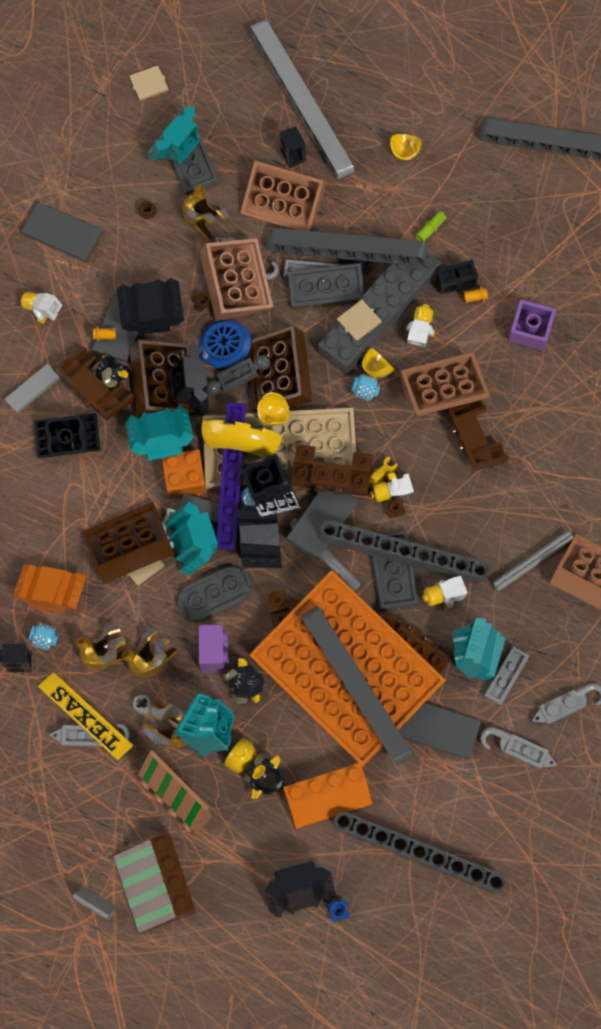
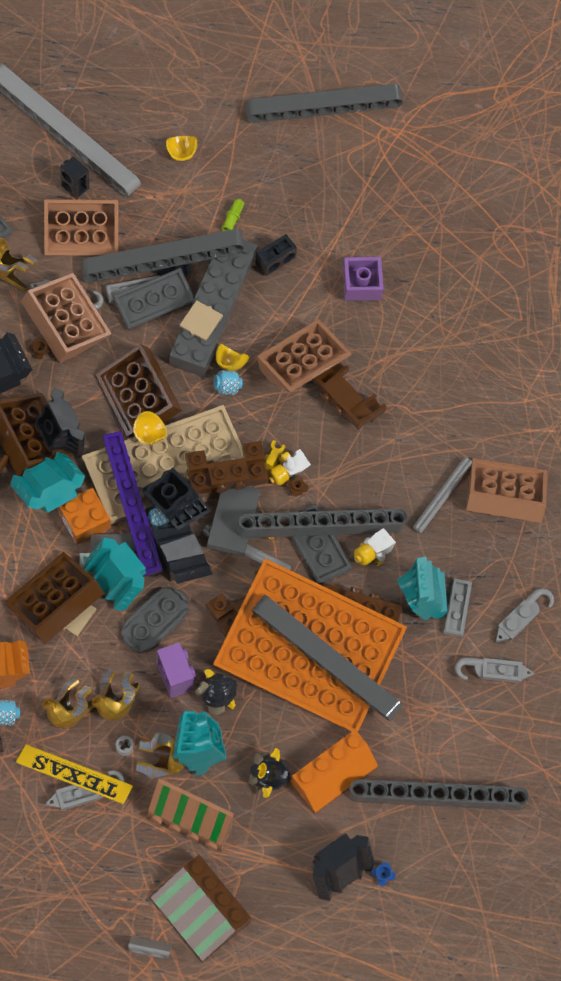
camera: 30 degrees left, 5 degrees down
(225, 361) = (89, 393): blue piece -> none
(238, 374) = (103, 405): dark grey plate -> none
(240, 437) = (128, 463): yellow brick -> none
(241, 756) = (239, 763): yellow helmet -> none
(420, 327) = (259, 312): white piece -> none
(442, 730) = (418, 676): dark grey tile -> none
(475, 295) = (298, 267): light orange pin -> none

